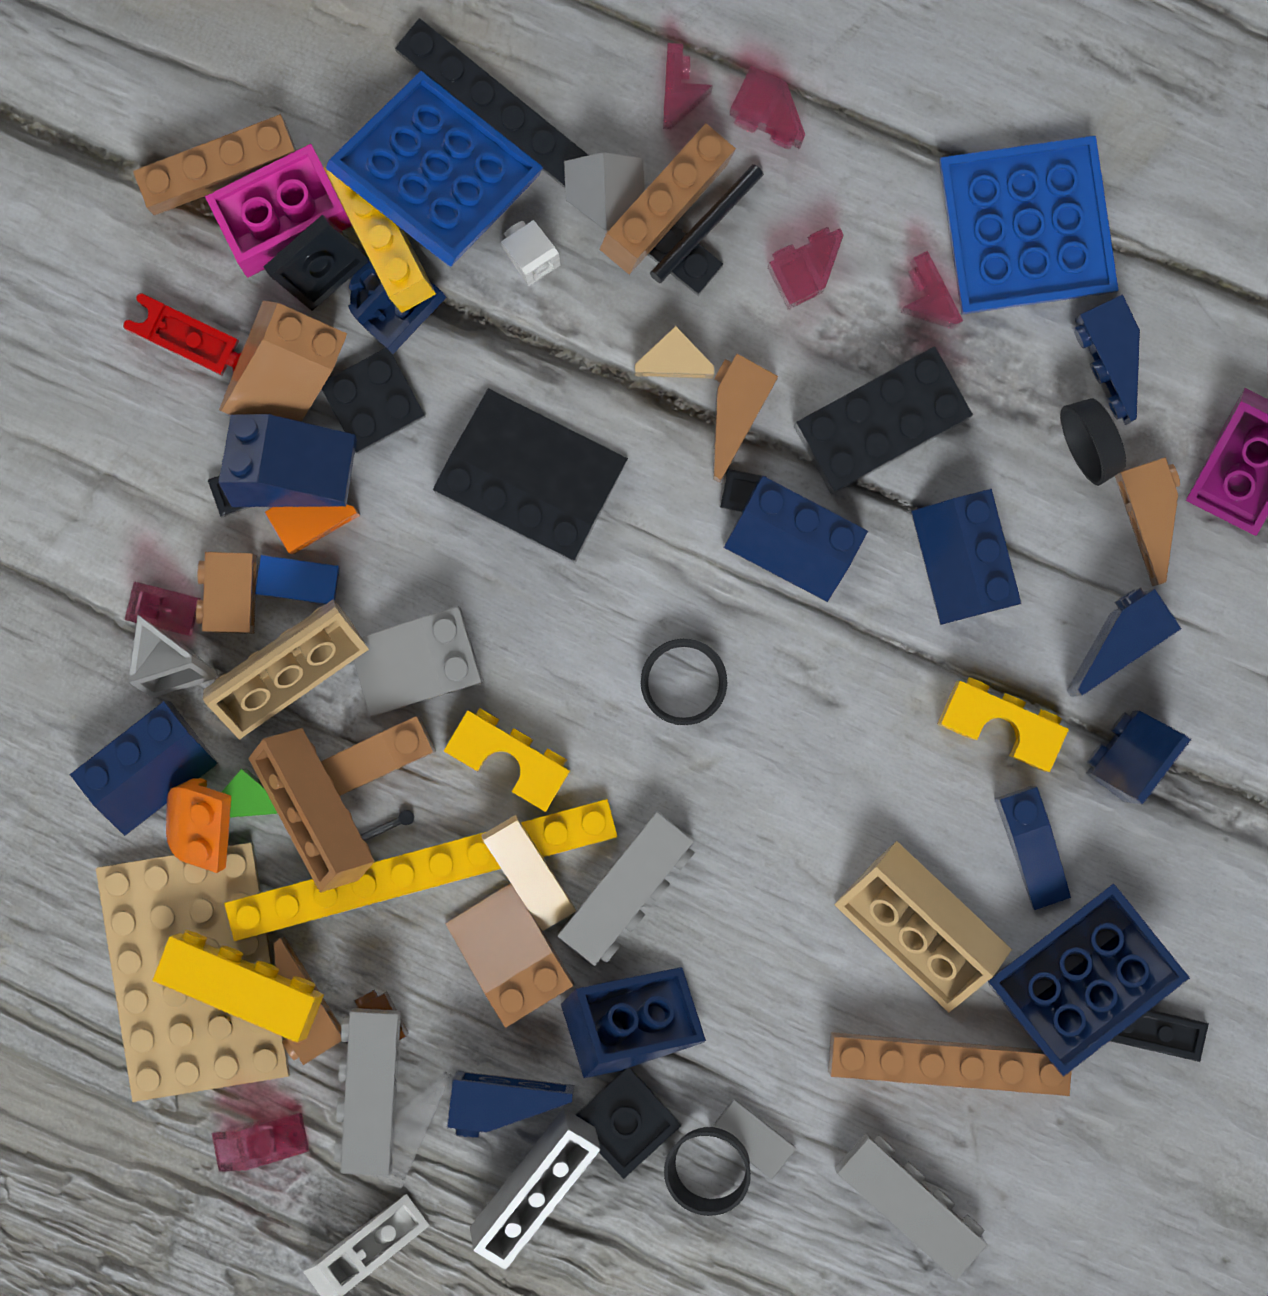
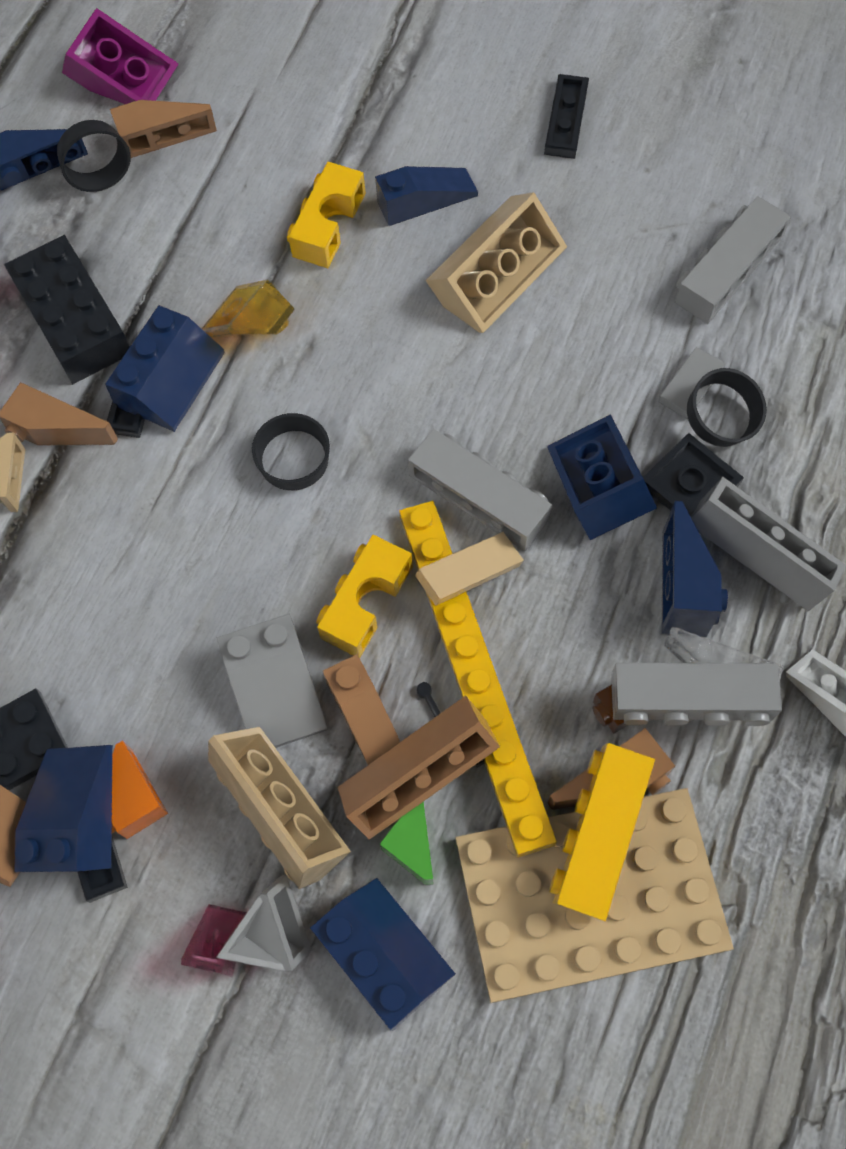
camera: 90 degrees left, 20 degrees down
(198, 824) = (438, 887): orange slope -> none
(228, 592) = (201, 872): medium nougat brick -> none
(260, 1142) = (759, 813): clear pink slope -> none
(297, 579) = (191, 805): blue tile -> none
(509, 955) = (549, 584): medium nougat slope -> none
(530, 475) = (103, 592): black slope -> none
(862, 627) = (250, 311): none -> clear yellow slope
(945, 1064) = (610, 238): medium nougat brick -> none
(966, 556) = (186, 244): dark blue slope -> none
(1088, 980) = (531, 135): dark blue slope -> none
(1126, 635) = (255, 128): dark blue slope -> none
(1136, 756) = (350, 106): dark blue slope -> none

